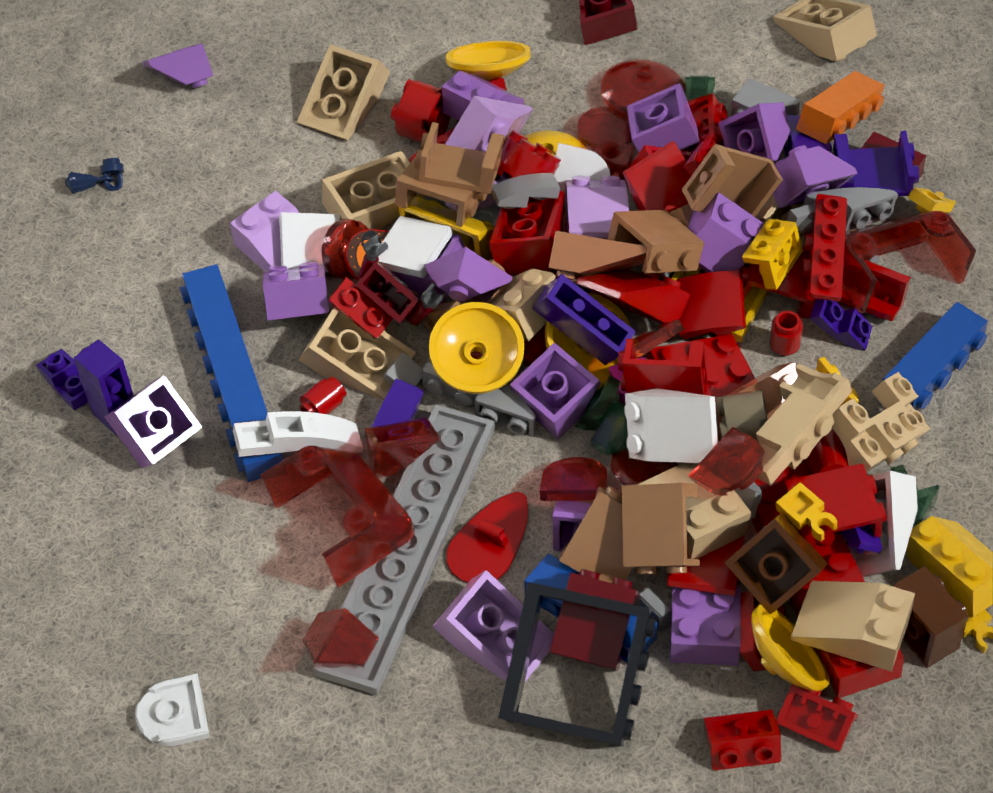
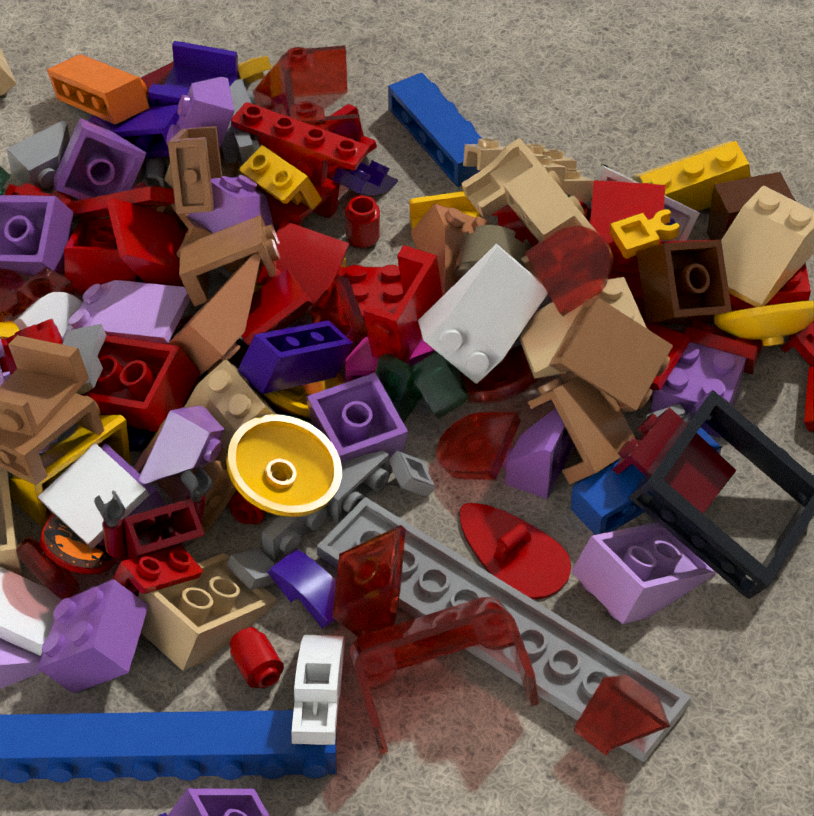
camera: 75 degrees left, 5 degrees down
(532, 446) = (411, 473): none -> light grey tile

